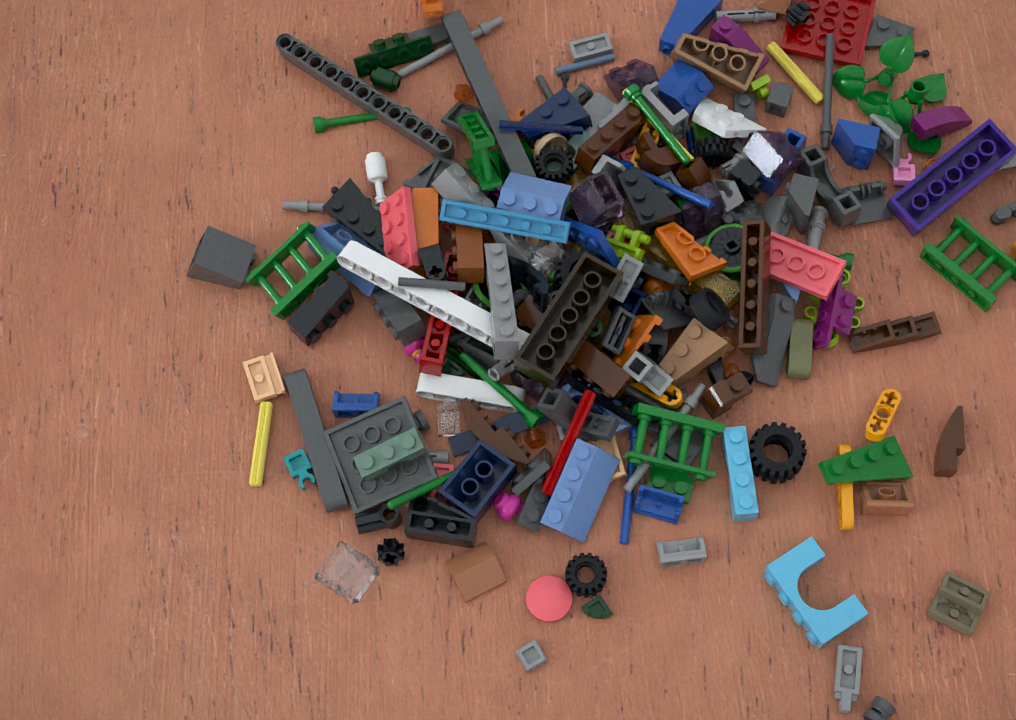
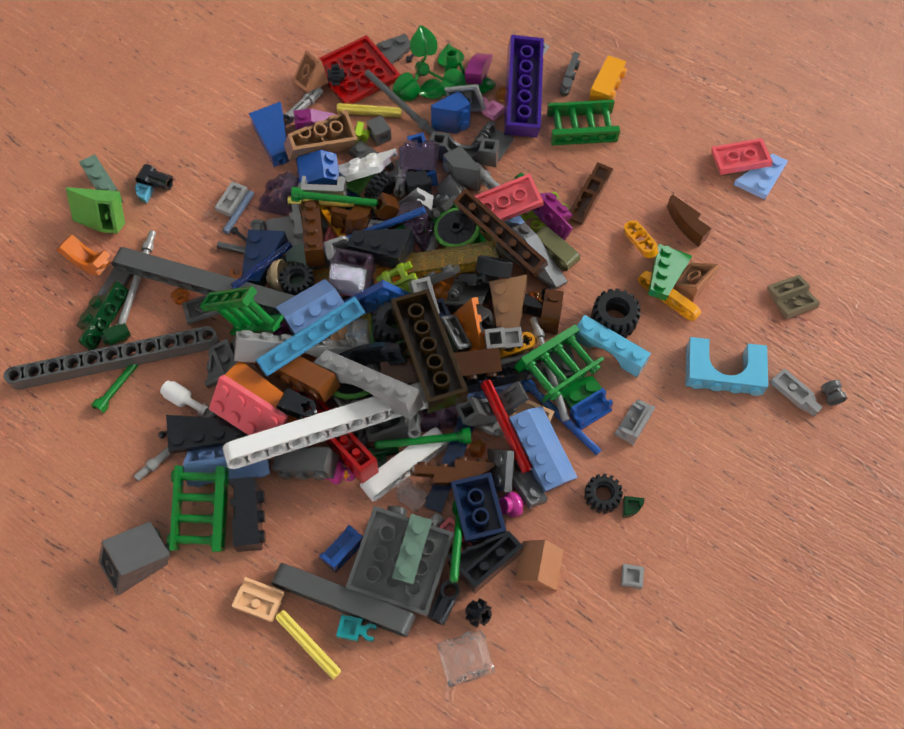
camera: 55 degrees left, 5 degrees down
(433, 284) = (313, 416): dark grey bar -> none
(549, 598) = (600, 531): coral dish -> none
(687, 253) = (441, 251): orange wing -> none

